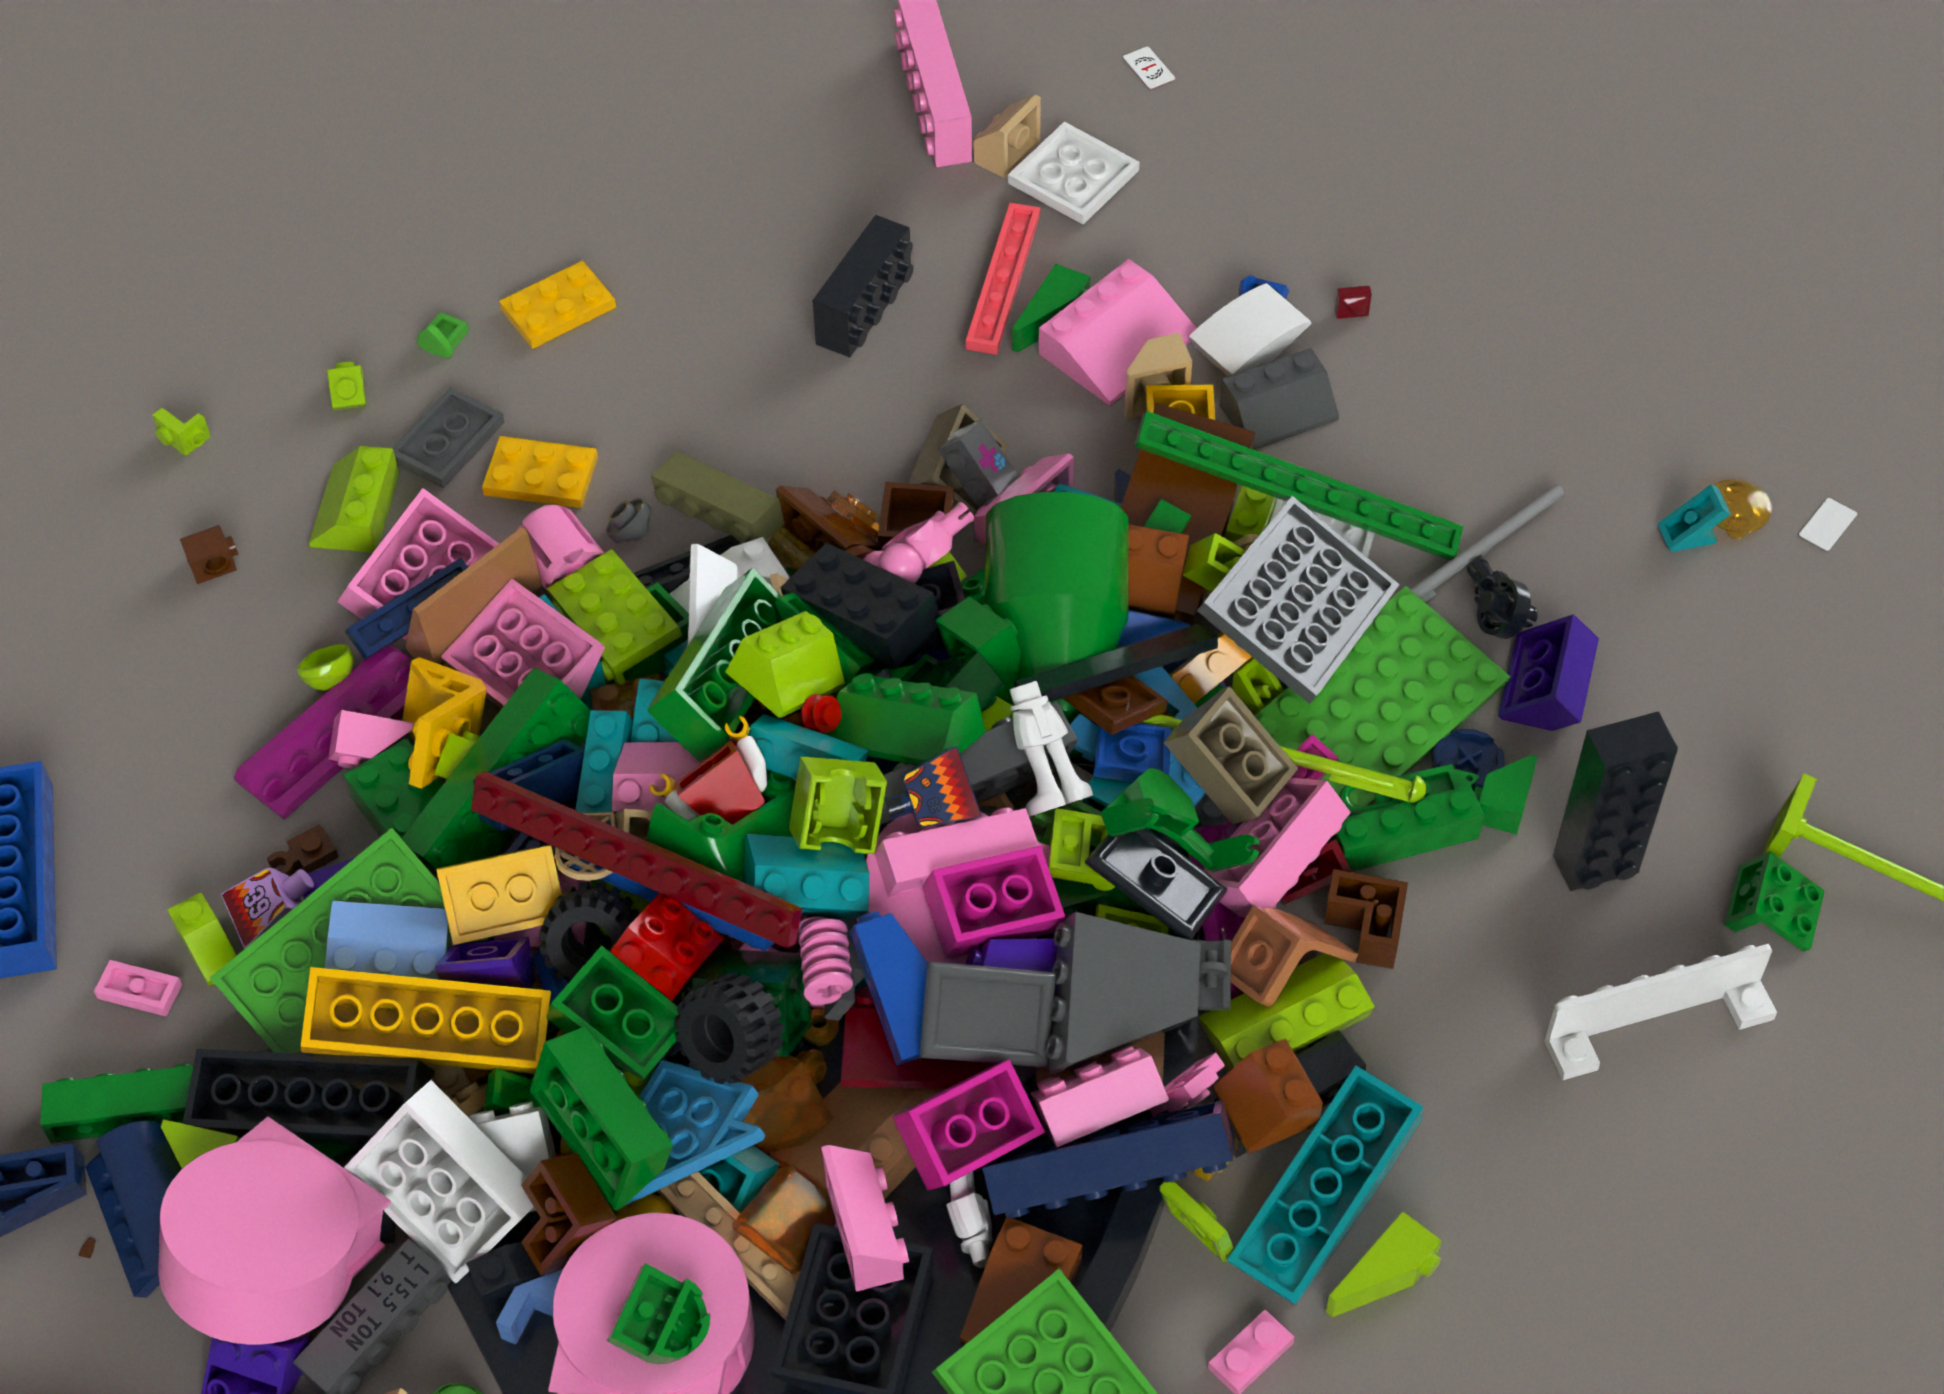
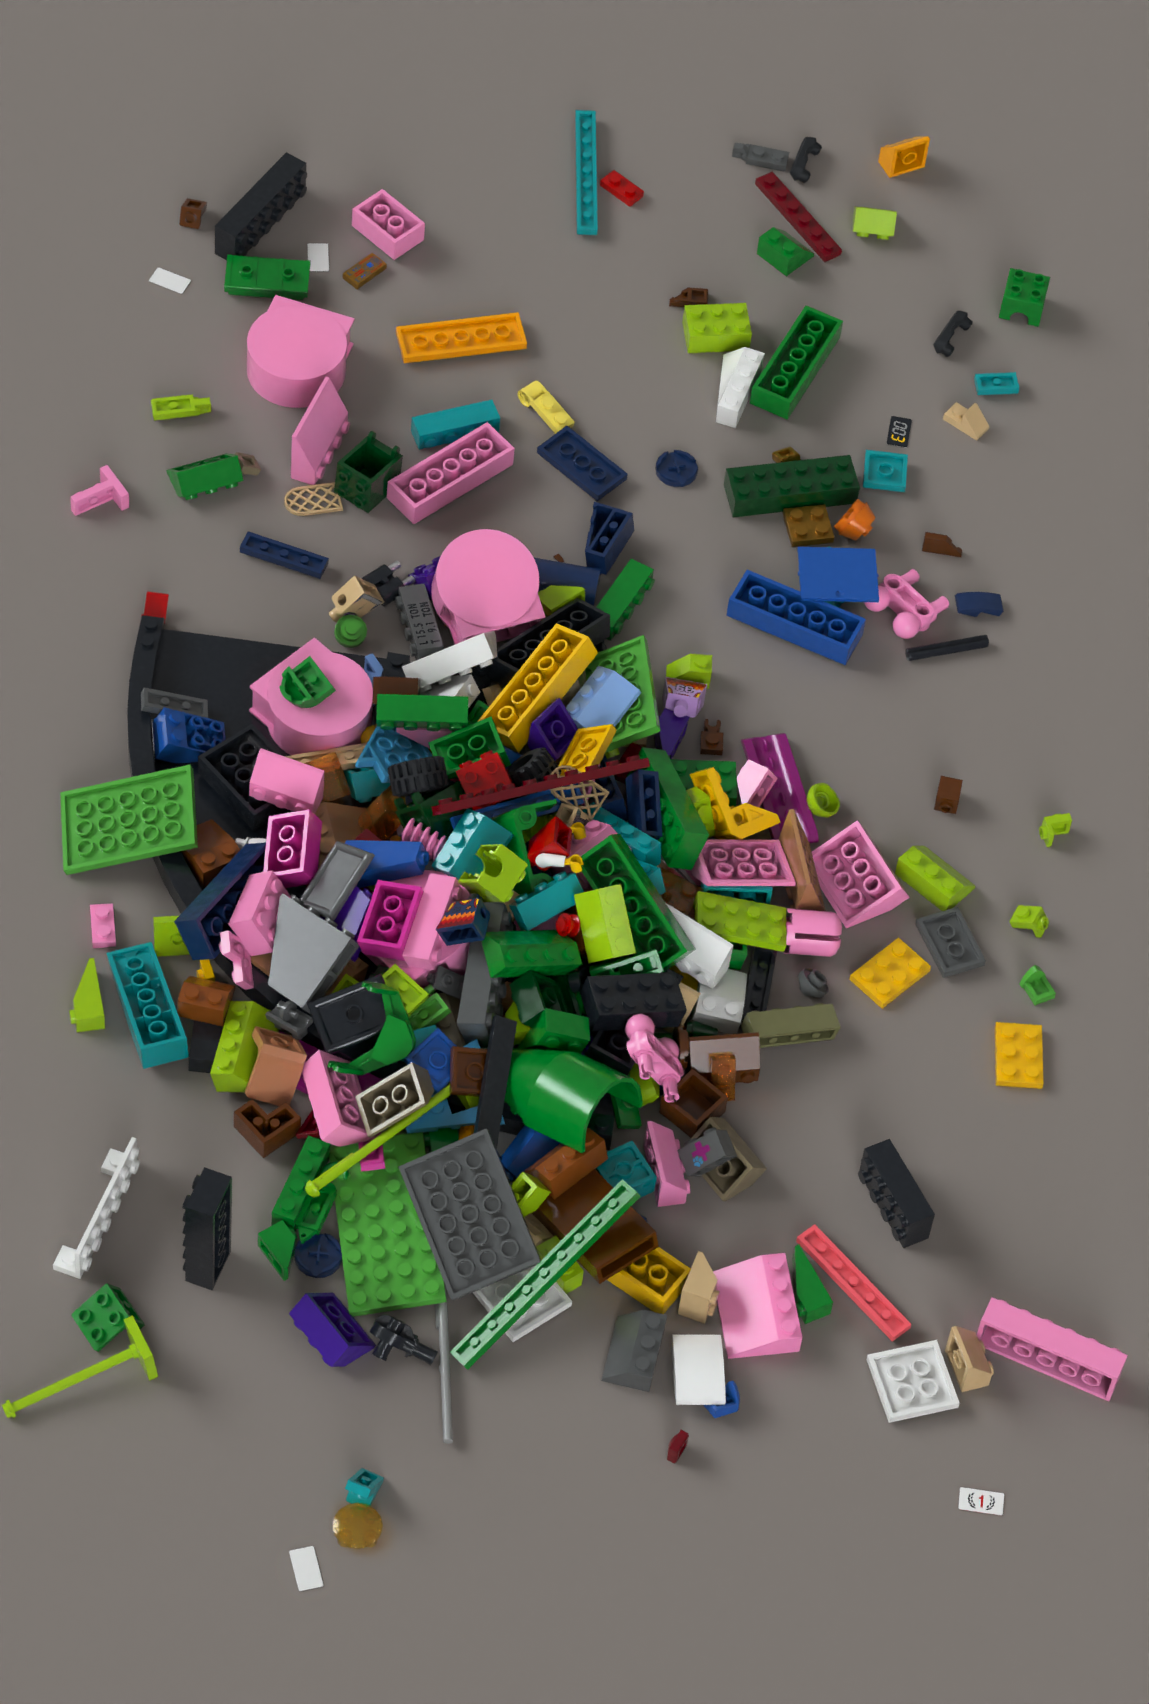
camera: 120 degrees right, 0 degrees up
(138, 988) = (684, 636): bright pink plate -> none
(393, 619) = (826, 851): dark blue plate -> none
(1038, 726) = (469, 996): white piece -> none
(1168, 518) = (576, 1194): green tile -> none

